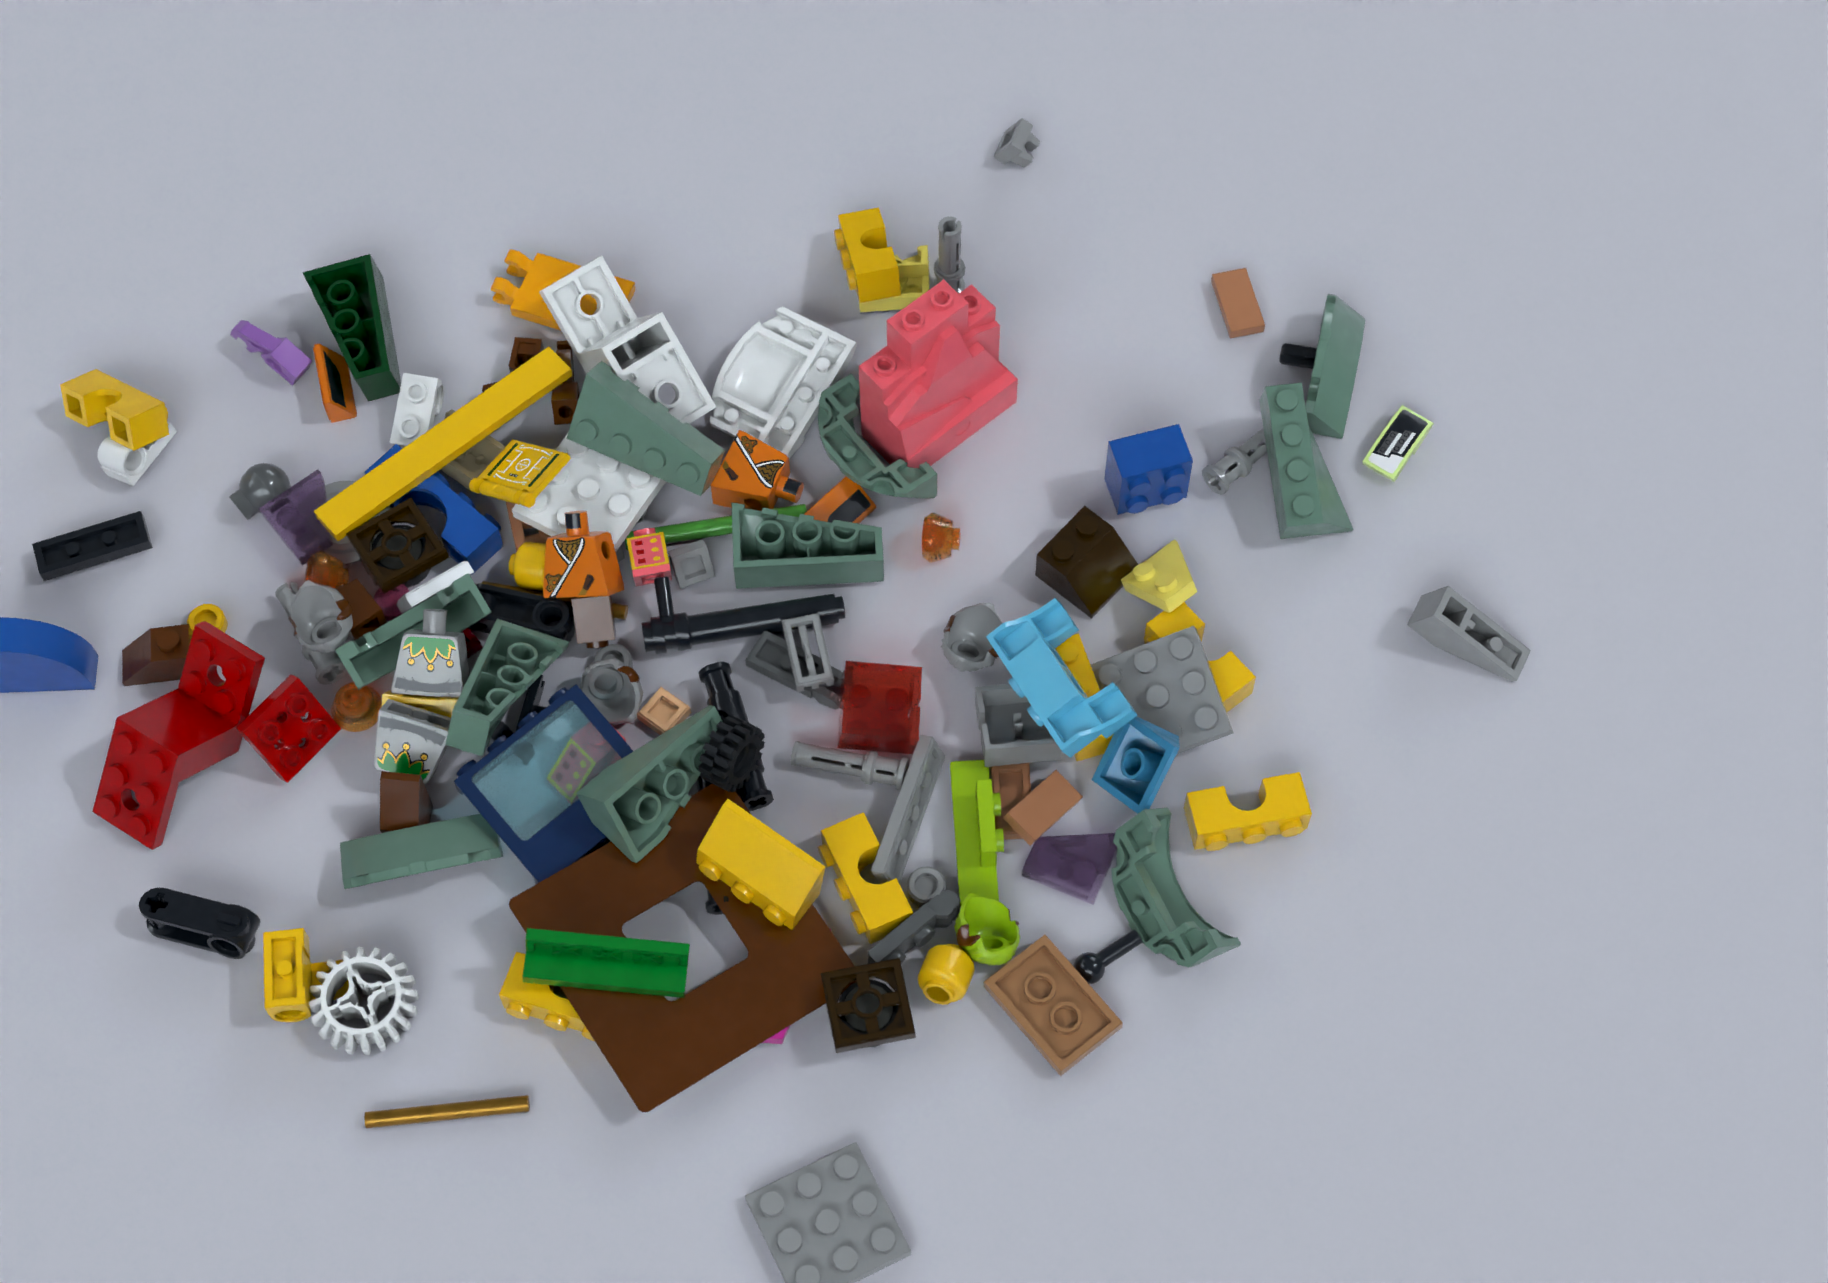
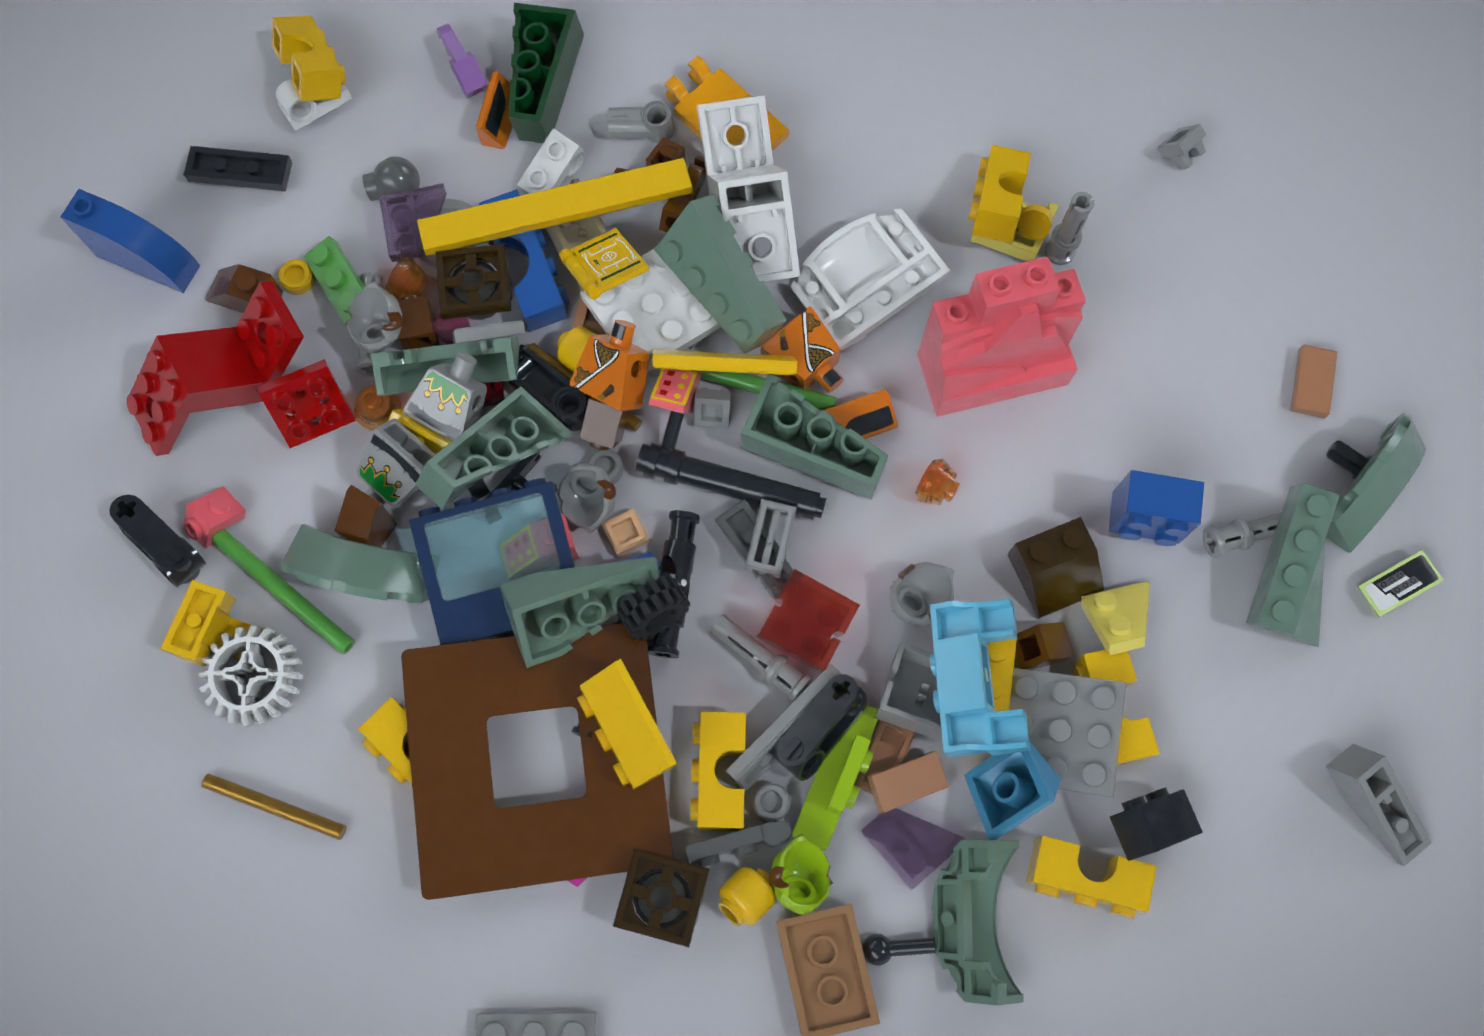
camera: 25 degrees right, 10 degrees up
(242, 876) = (211, 514): none -> coral bracket
(253, 604) = (335, 275): none -> bright green plate
(351, 915) = (283, 591): none -> bright green piece
(483, 333) = (638, 122): none -> light grey piece
(605, 963) = (453, 752): green fence -> none
(685, 510) = (724, 362): none -> yellow tile
(855, 458) = (897, 376): sand green windscreen -> none
(914, 268) = (1035, 222): none -> yellow tile
(938, 794) = (820, 727): none -> black piece
(1107, 635) = (1043, 646): none -> reddish brown brick
(1281, 737) = (1155, 824): none -> black brick

